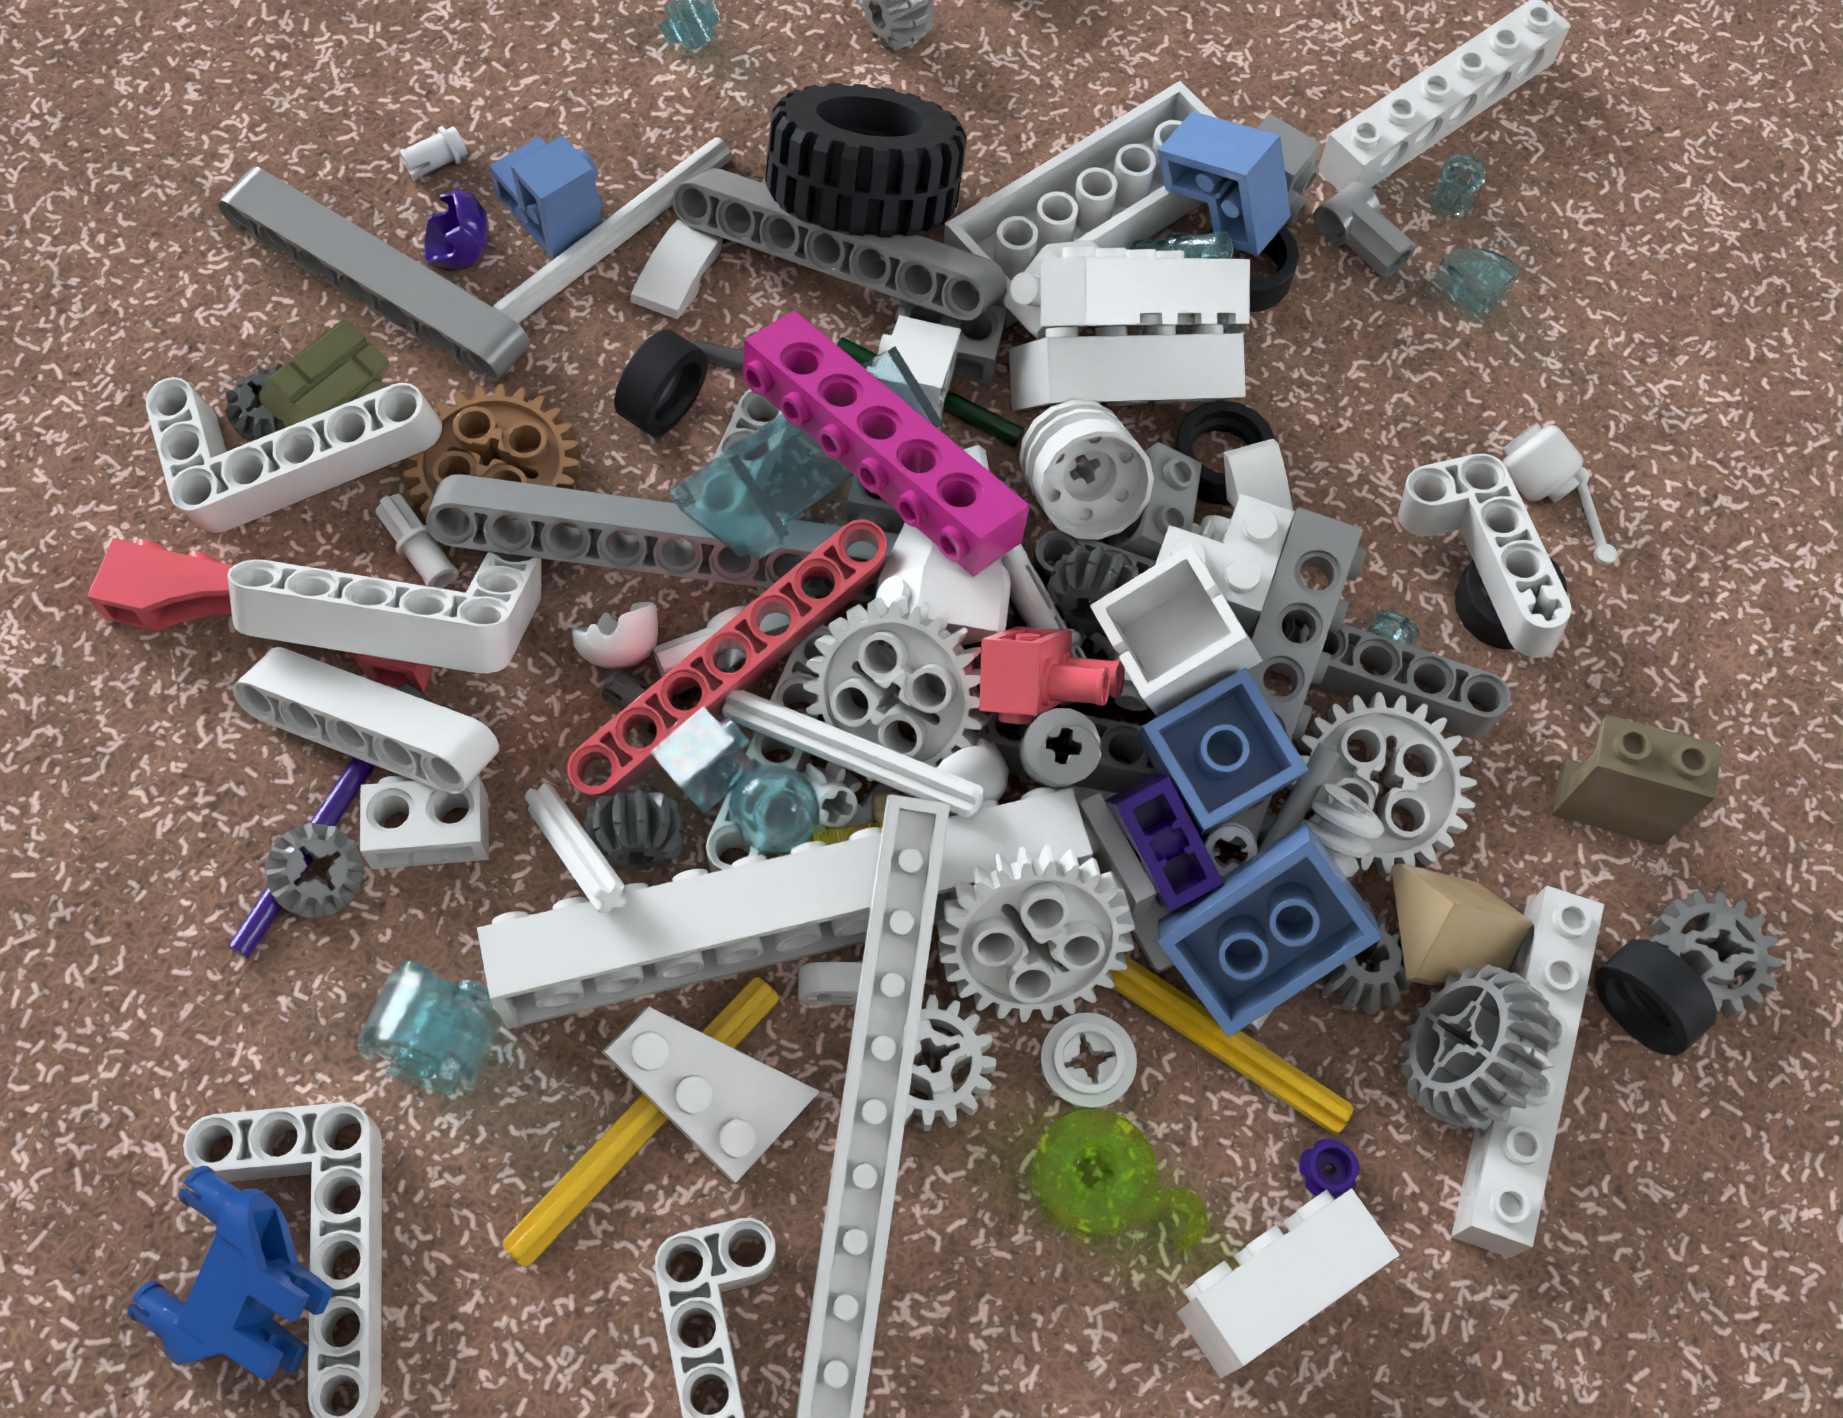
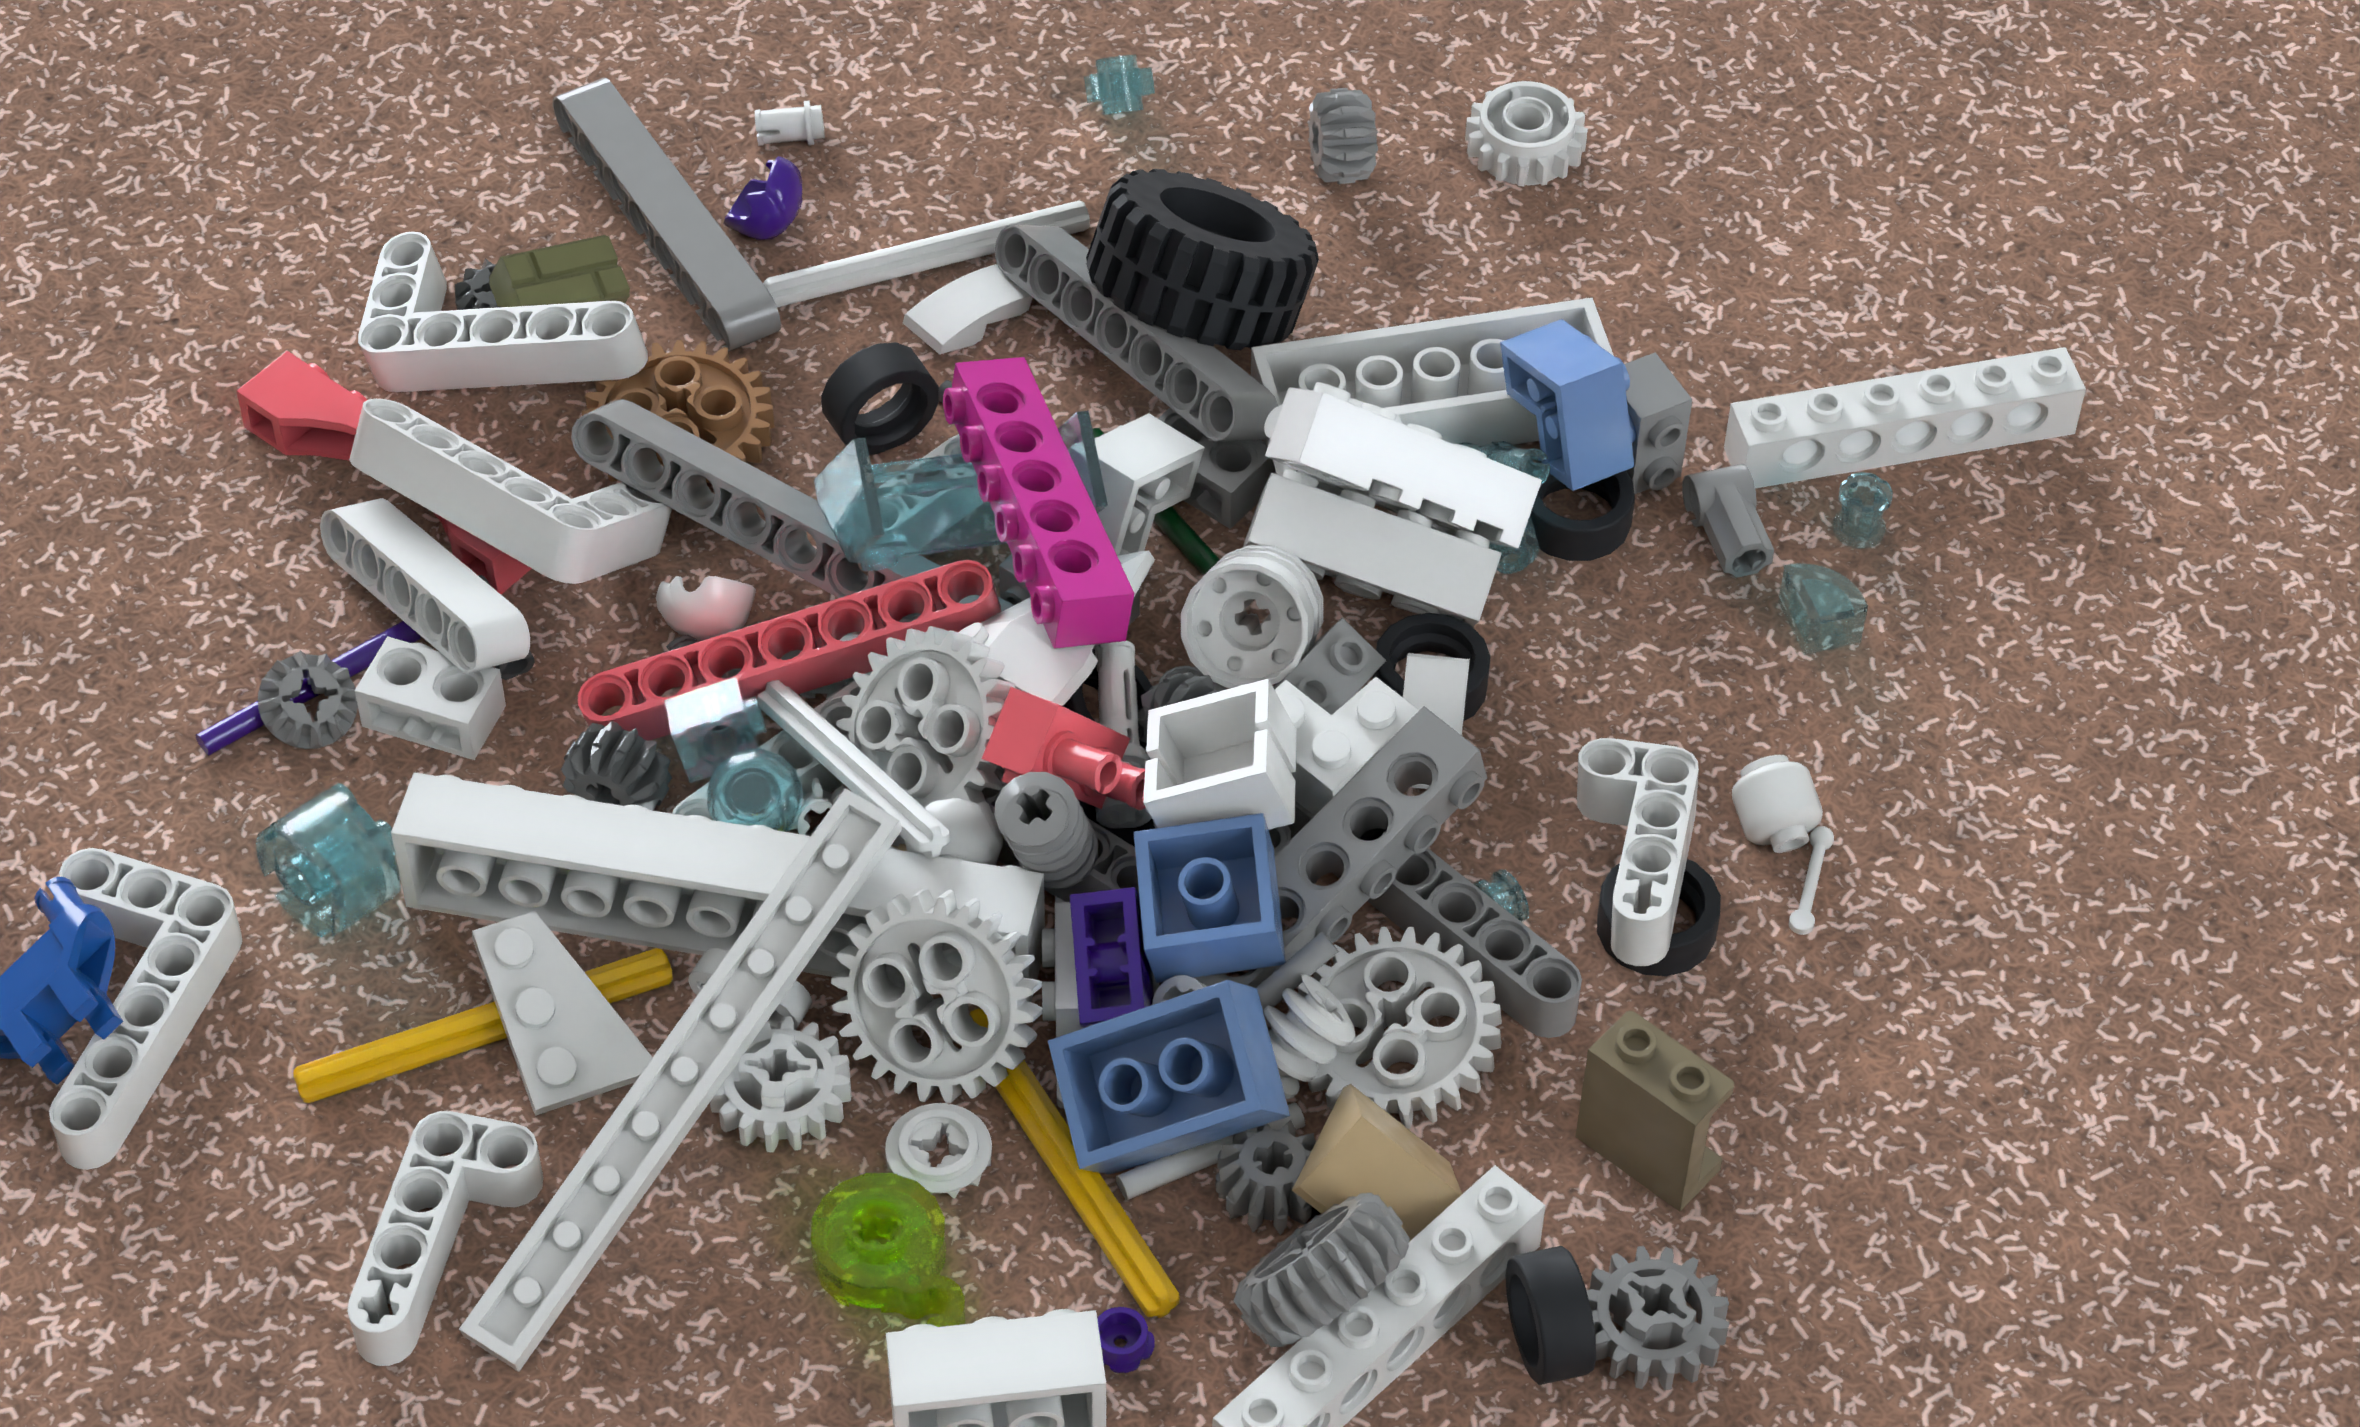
camera: 30 degrees right, 15 degrees down
(416, 542) = (562, 460): white axle -> none
(550, 192) = (878, 194): medium blue brick -> none
(576, 849) = (547, 754): white axle -> none

